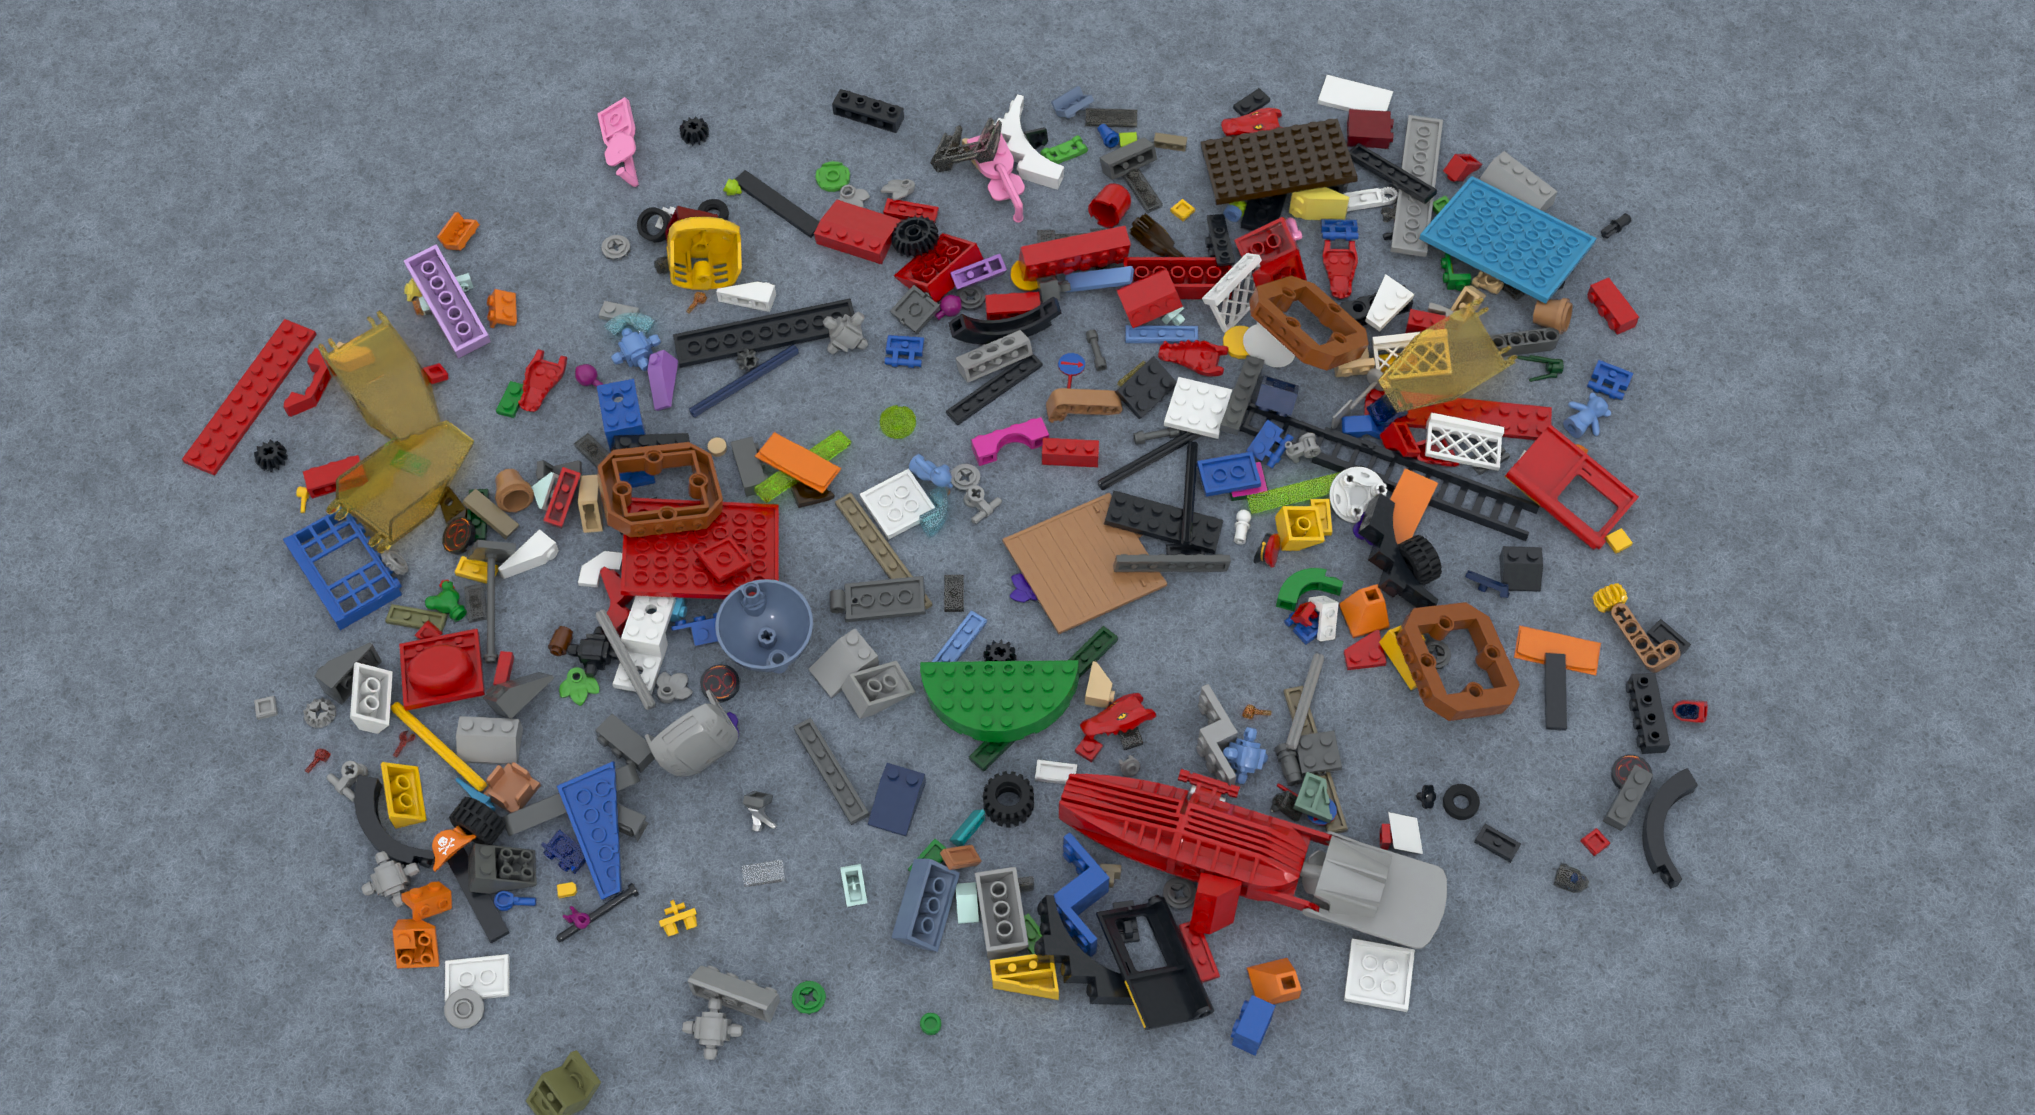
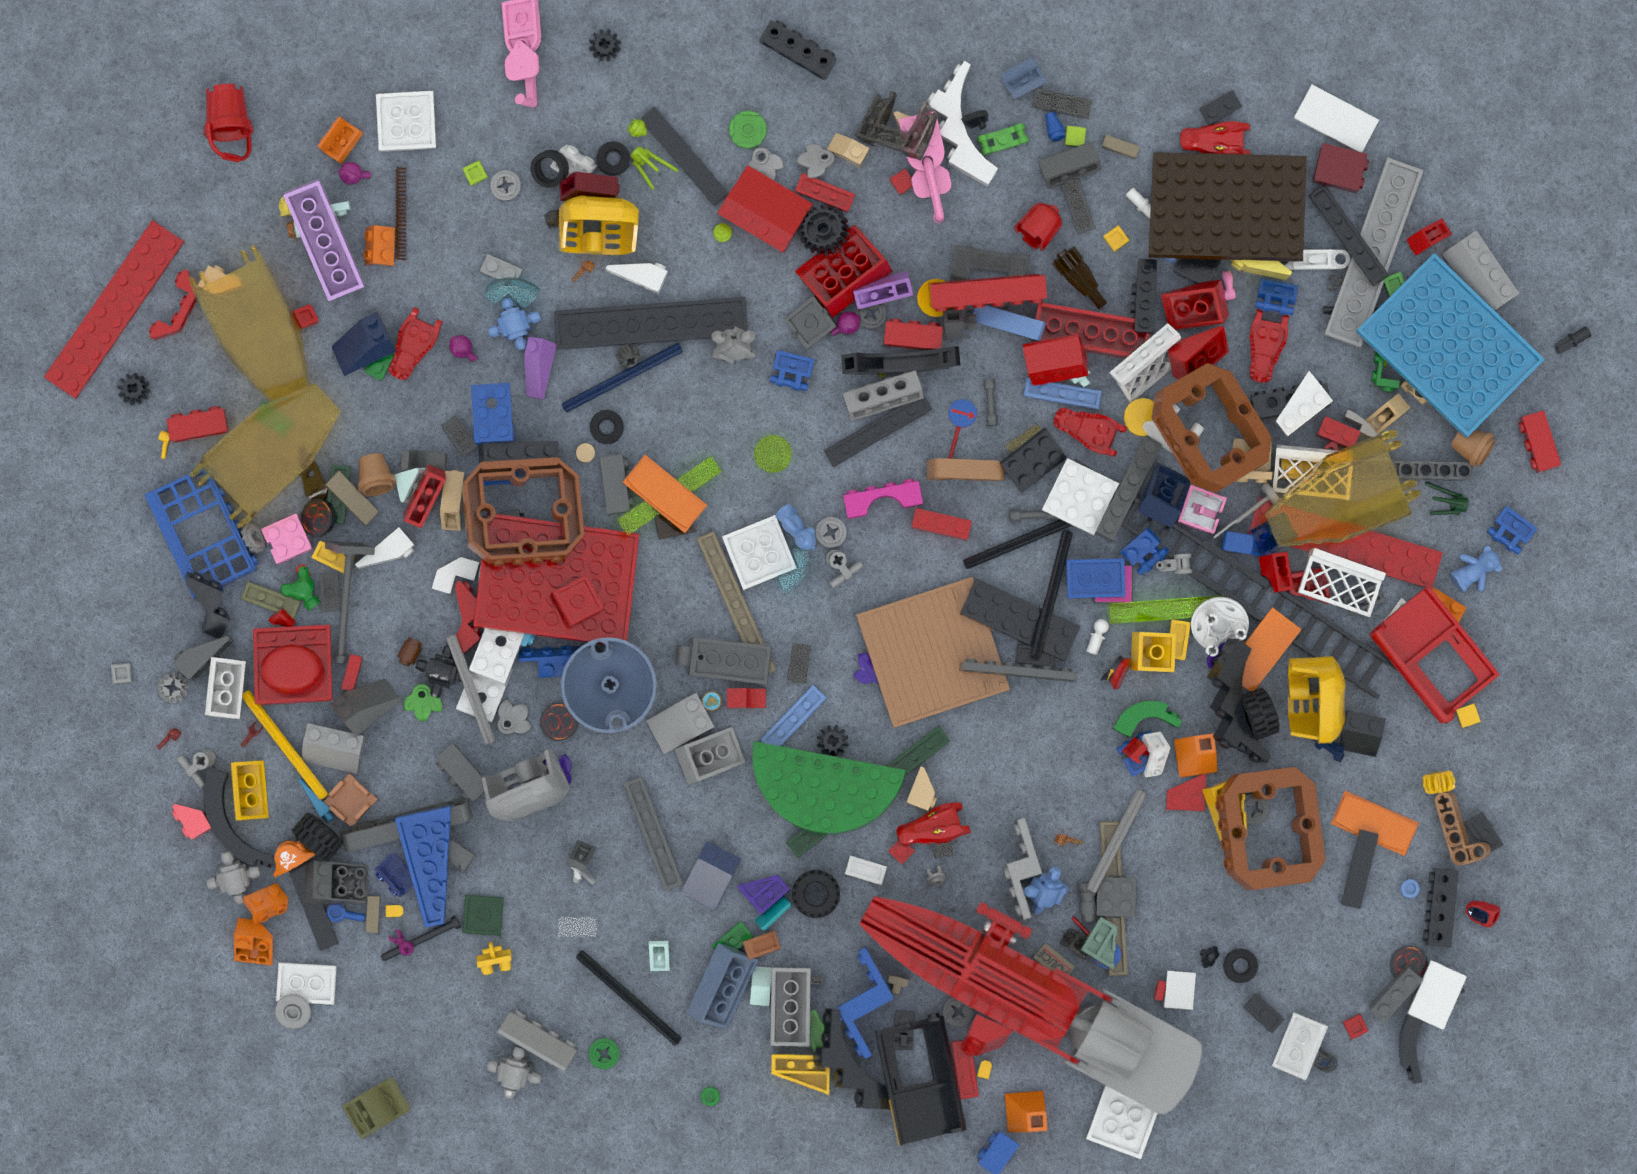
camera: 10 degrees right, 25 degrees up
(346, 831) = (193, 820): none -> coral slope
(350, 226) = (227, 119): none -> red piece
(350, 613) = (208, 595): none -> black arch
(429, 560) = (287, 539): none -> bright pink piece
(471, 255) = (352, 173): none -> magenta piece
(493, 382) = (363, 344): none -> dark blue slope
(518, 211) = (406, 121): none -> white plate
(521, 284) = (398, 213): none -> reddish brown piece
(544, 895) = (373, 914): none -> dark tan piece
(586, 242) = (475, 172): none -> lime tile
(661, 879) = (483, 915): none -> dark green tile
(737, 432) = (606, 438): none -> black tyre
(740, 208) = (642, 157): none -> lime plant
(821, 254) = (722, 232): none -> lime plate
(828, 936) = (628, 997): none -> black axle
(873, 639) = (711, 701): none -> tile
(904, 631) = (746, 698): none -> red arch
(928, 176) = (848, 149): none -> tan slope
(955, 808) = (764, 892): none -> dark purple wing
(979, 195) = (902, 181): none -> red tile
(1199, 179) = (1142, 203): none -> white pin
(1220, 947) = (984, 1069): none -> yellow piece
(1315, 404) = (1201, 510): none -> piece
(1486, 551) = (1330, 718): none -> yellow piece
(1544, 866) = (1299, 1046): none -> white tile
(1610, 703) = (1409, 888): none -> medium blue tile
(1670, 790) = (1436, 995): none -> white tile

